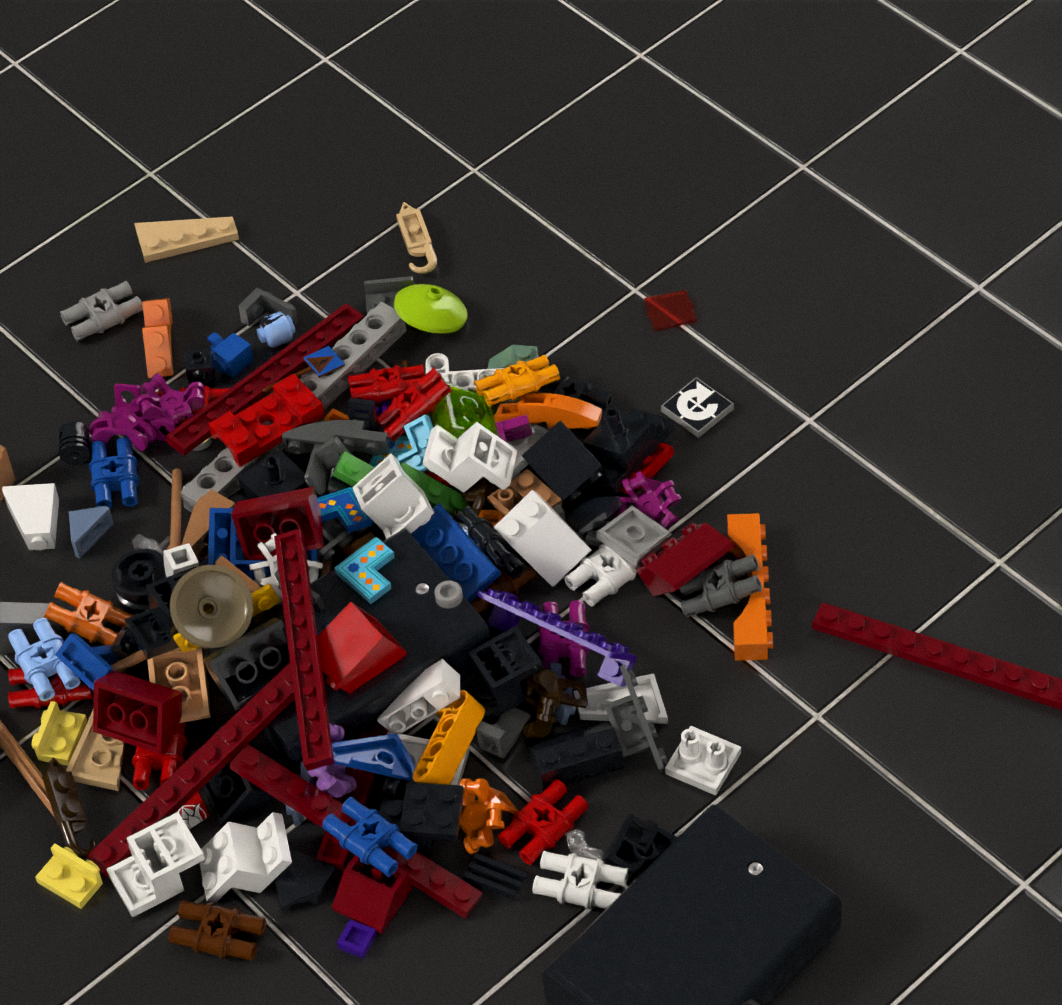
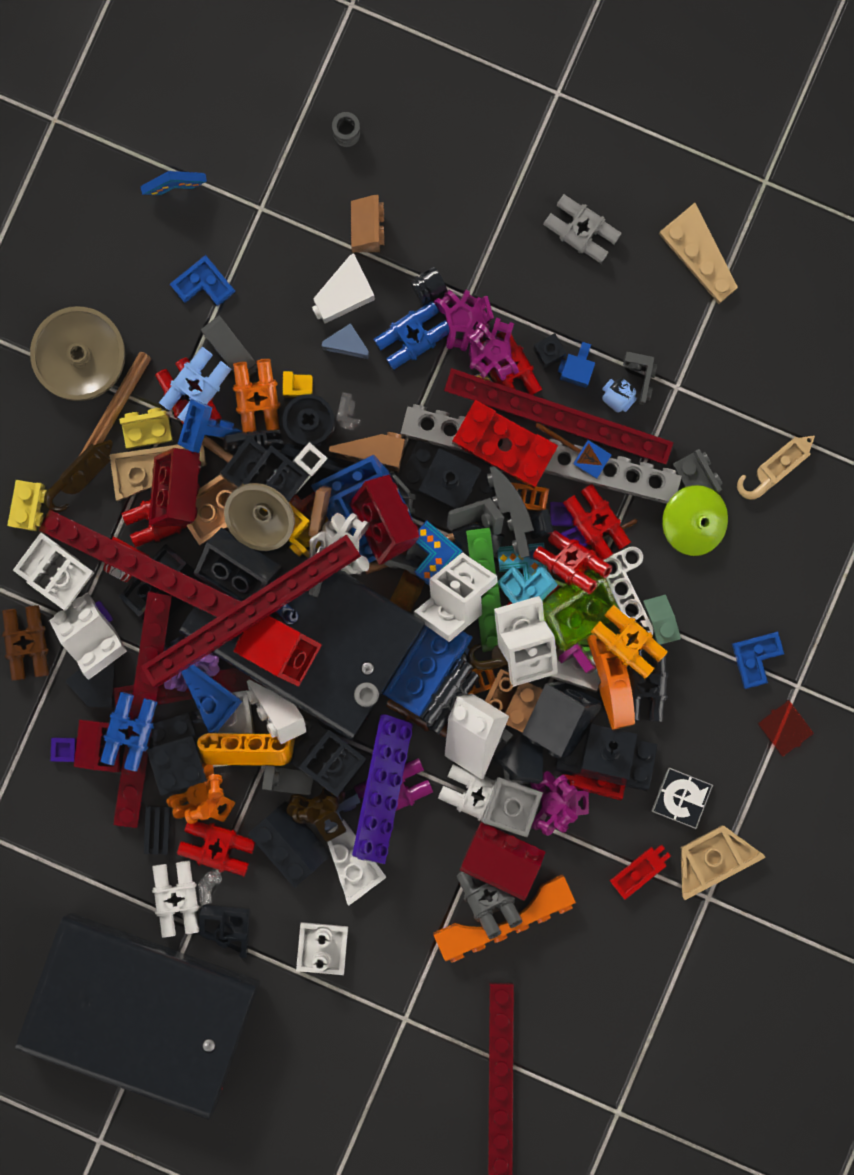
camera: 60 degrees right, 35 degrees up
(101, 586) = (296, 384): none -> yellow panel
(158, 337) = (571, 294): orange arch -> none
(176, 508) = (340, 437): medium nougat bar -> none
(361, 570) = (364, 609): medium azure tile -> none
(585, 314) = (750, 656): none -> blue tile
(631, 725) = (324, 882): dark grey bracket -> none
(755, 461) = (639, 871): none -> red hinge
(771, 399) = (714, 859): none -> tan wing

